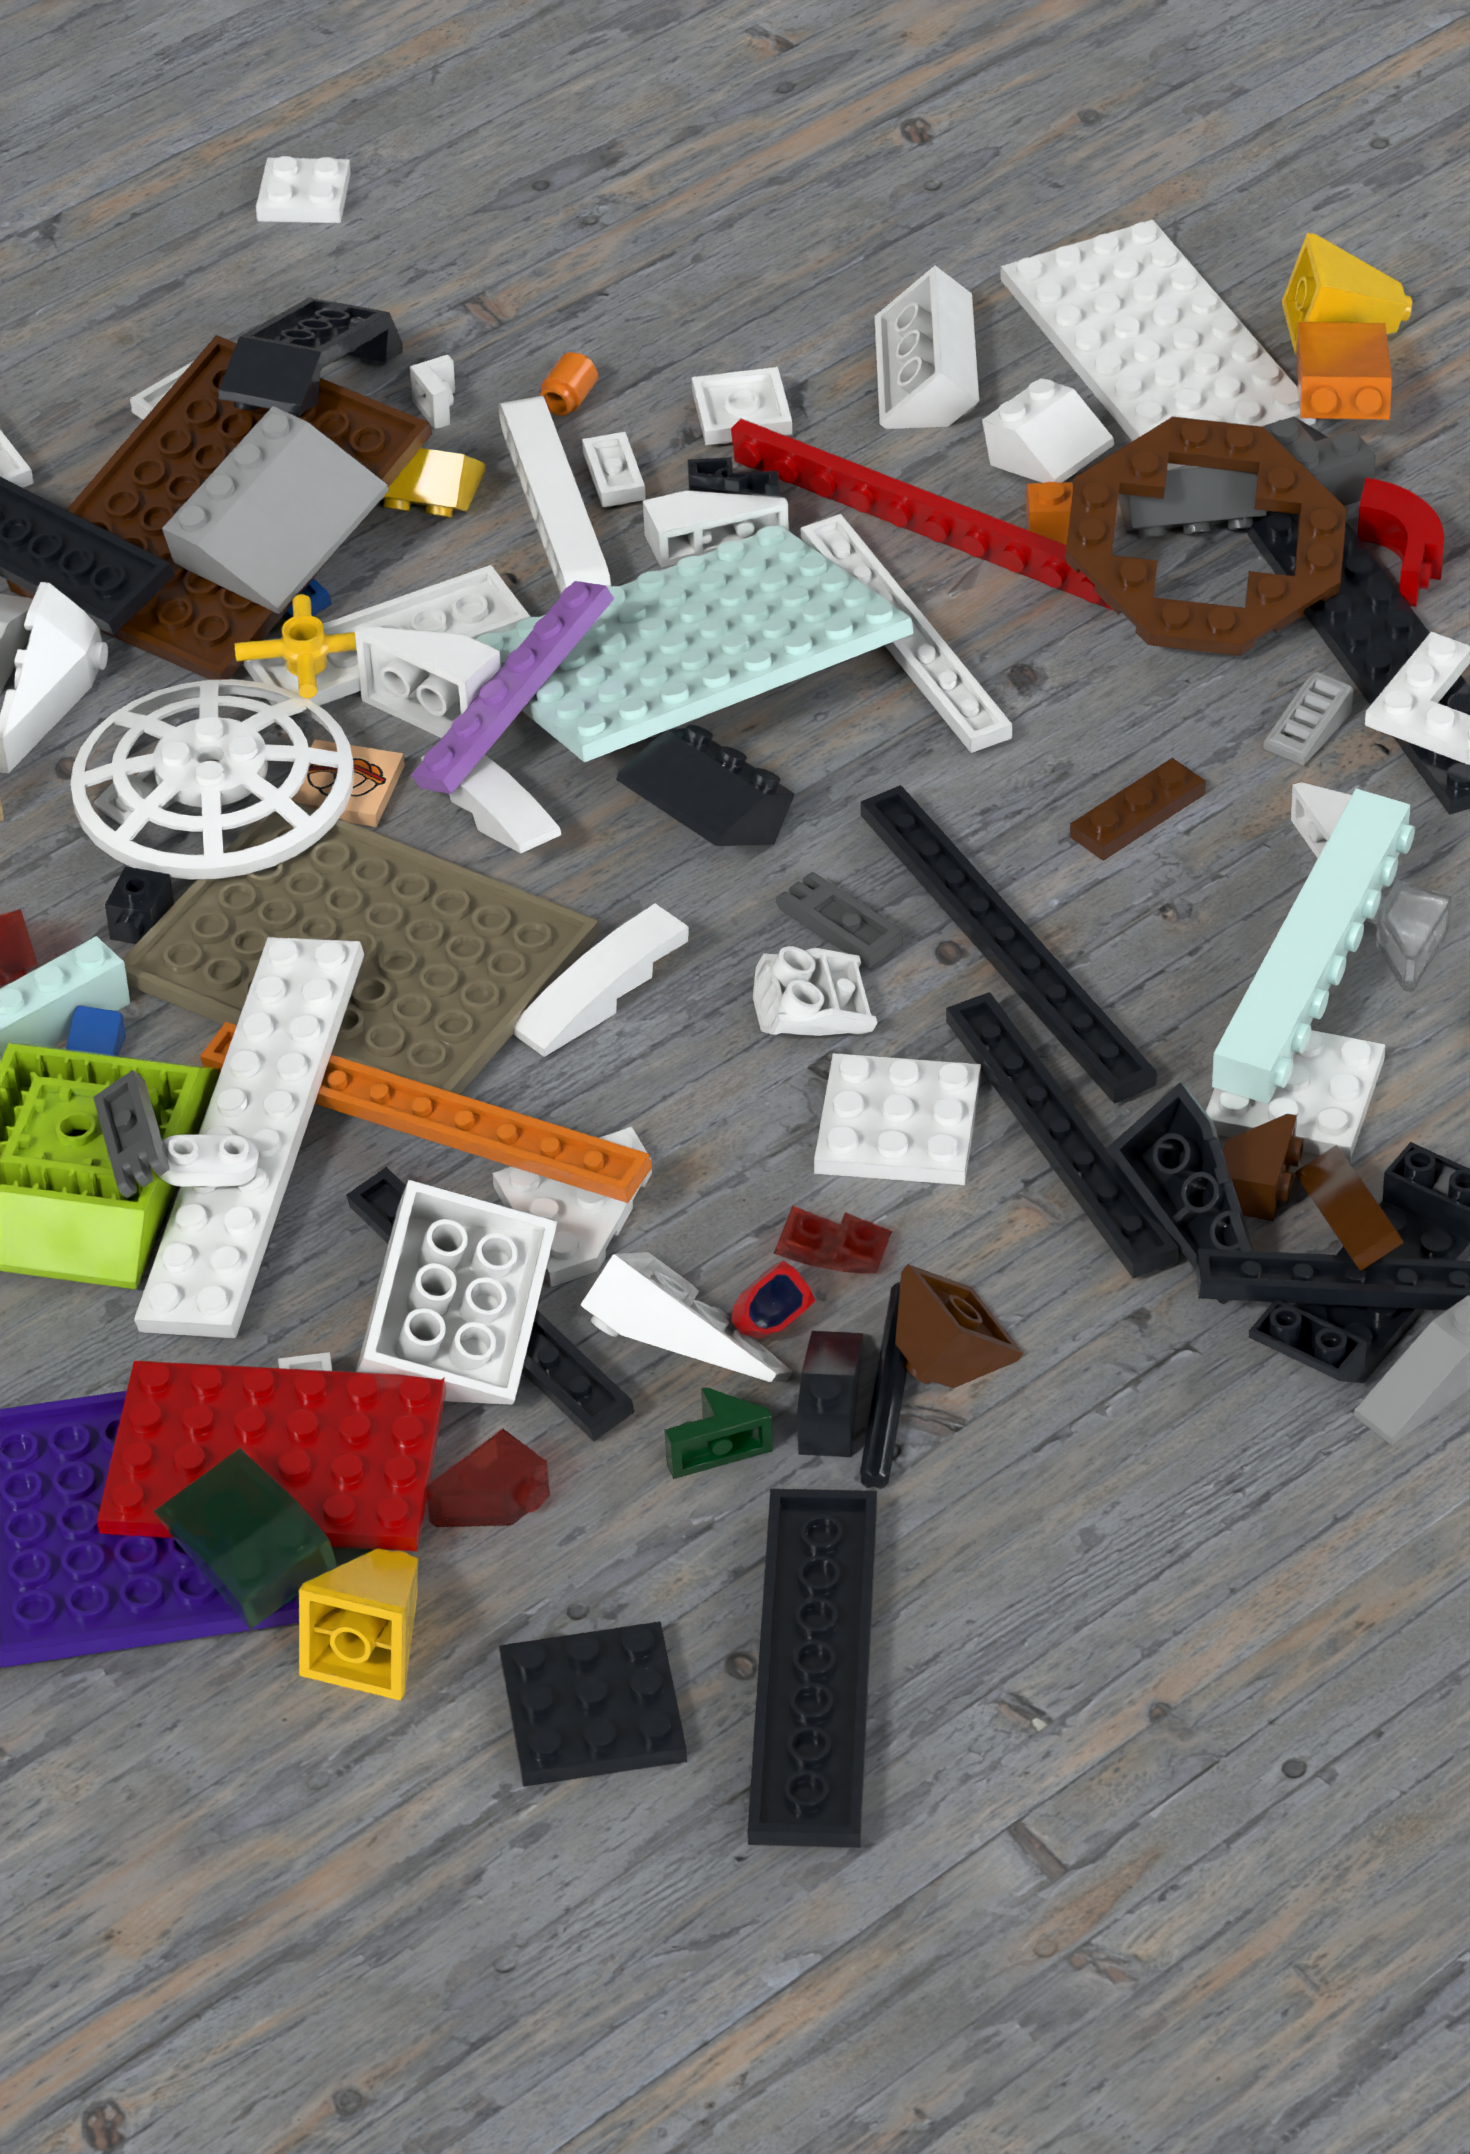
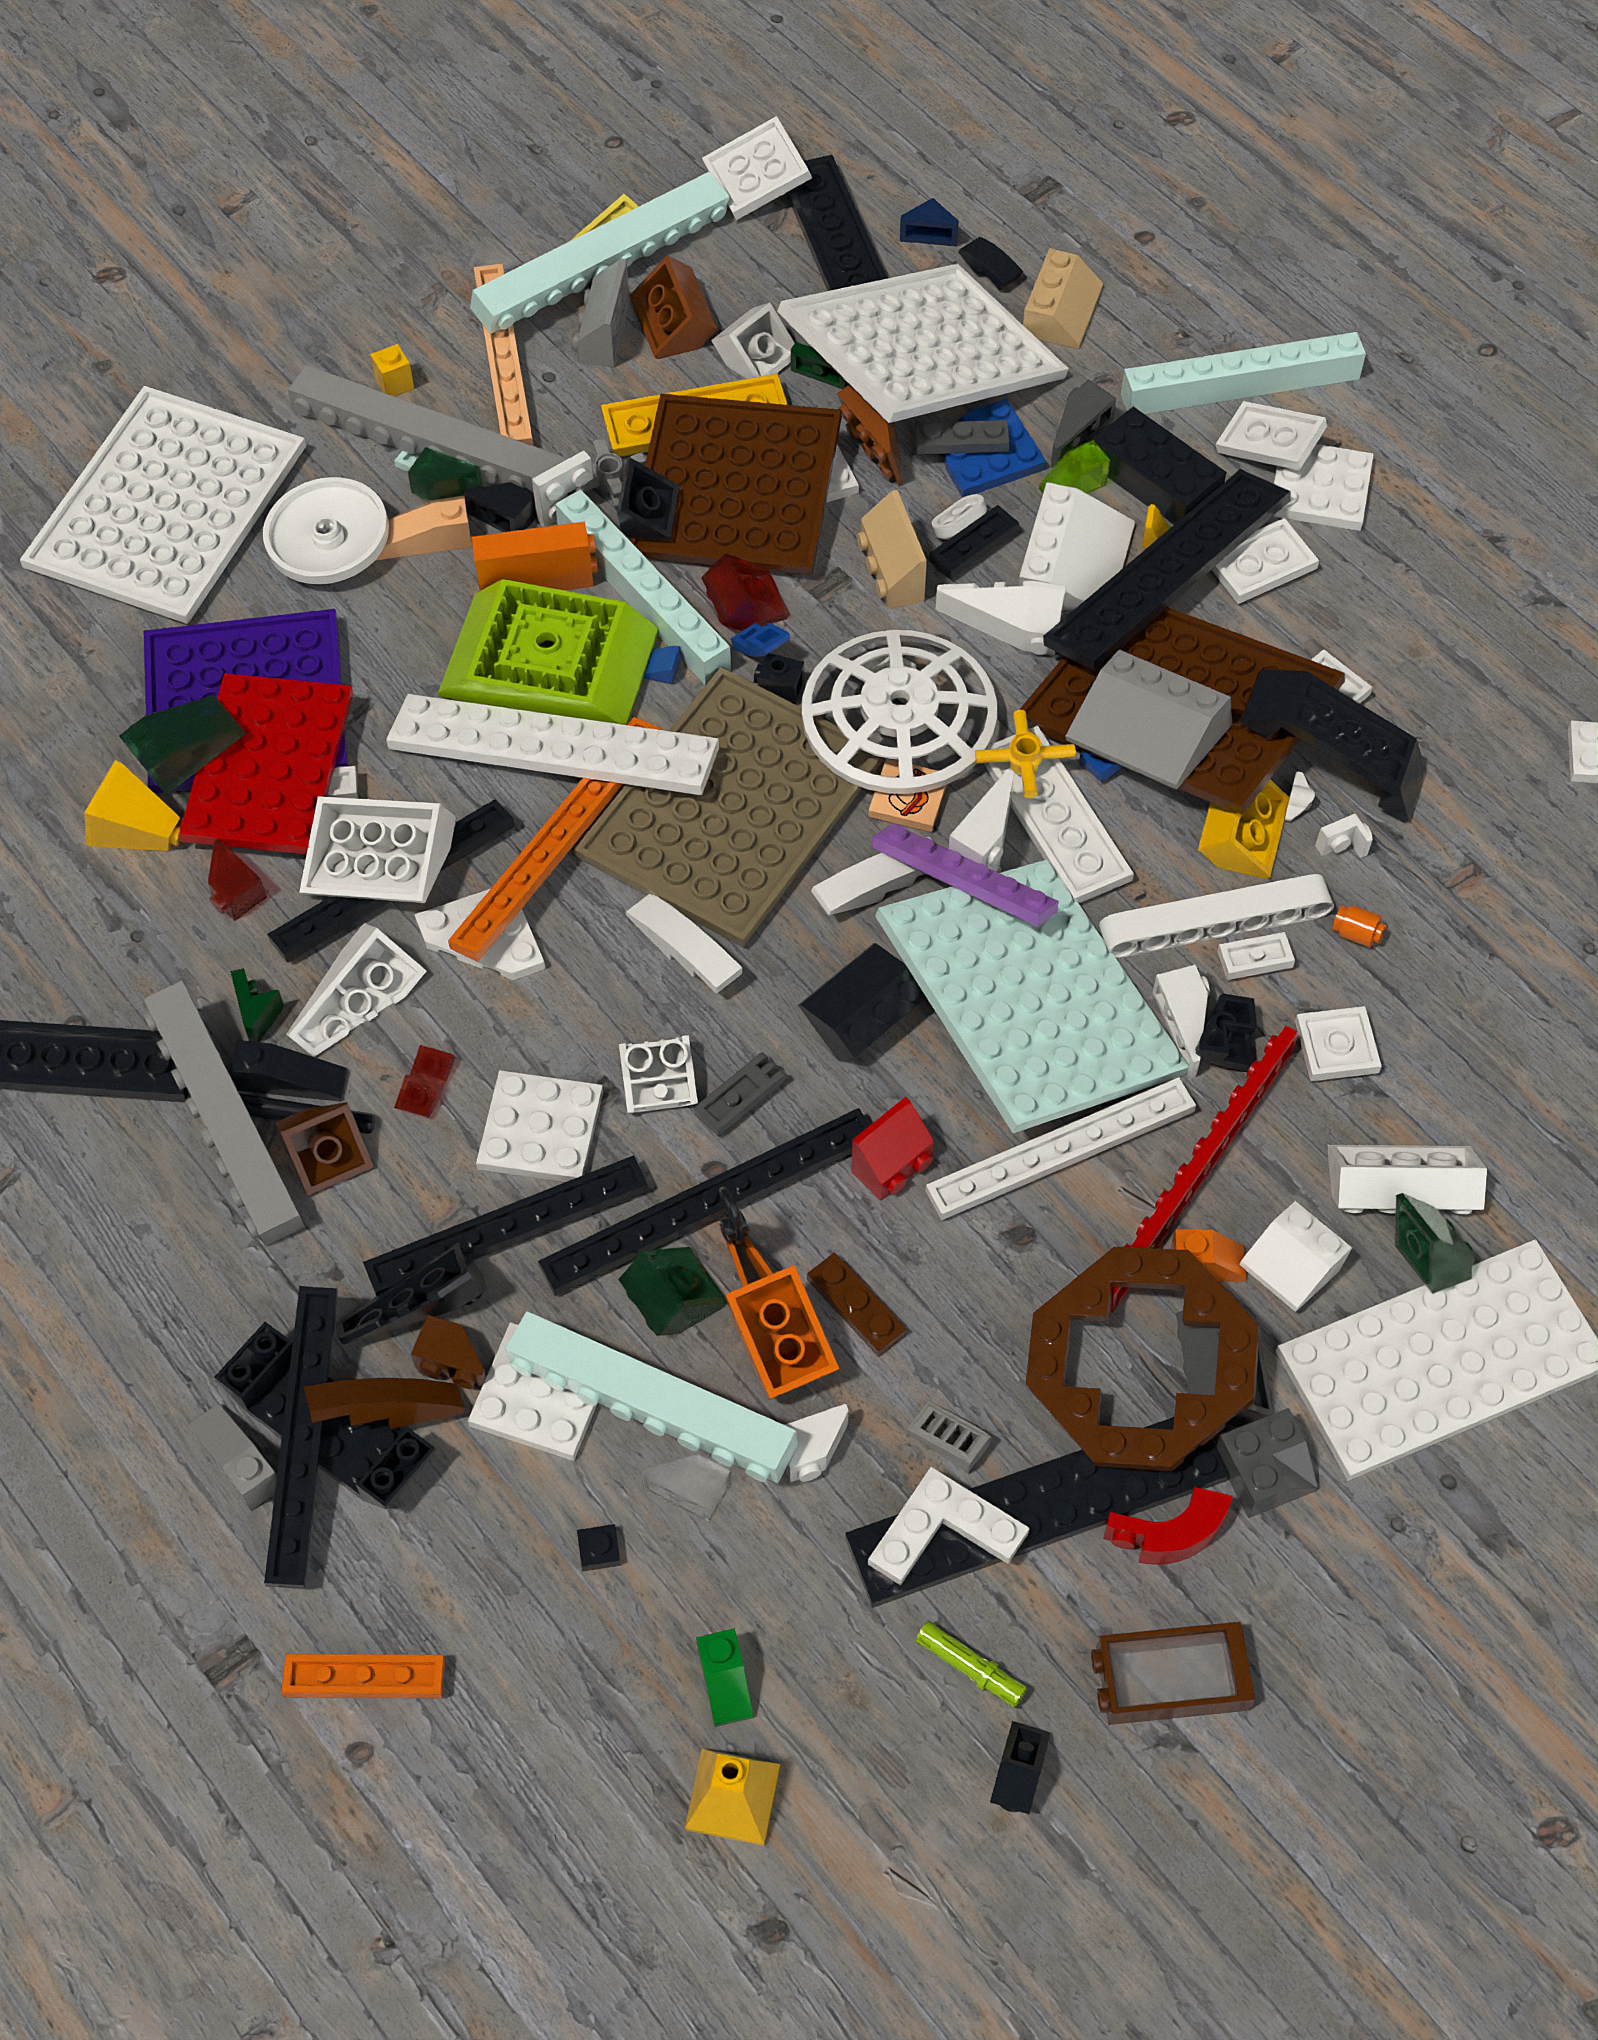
camera: 90 degrees right, 15 degrees up
(82, 913) = (759, 640): none -> blue slope
(131, 1132) = (516, 662): dark grey hinge -> none
(210, 1160) = (503, 706): white plate -> none
(592, 1704) = (54, 940): black plate -> none
(771, 1302) = (360, 1038): rock -> none
(910, 1426) = (223, 1113): none -> light grey brick
(927, 766) = (892, 1150): none -> red slope
(1030, 327) = (1431, 1244): none -> clear green slope
(1146, 964) = (671, 1289): none -> clear green slope
(1190, 837) = (774, 1316): none -> orange slope
(1340, 289) = (1493, 1505): yellow slope -> none
(1343, 370) = (1378, 1490): orange brick -> none

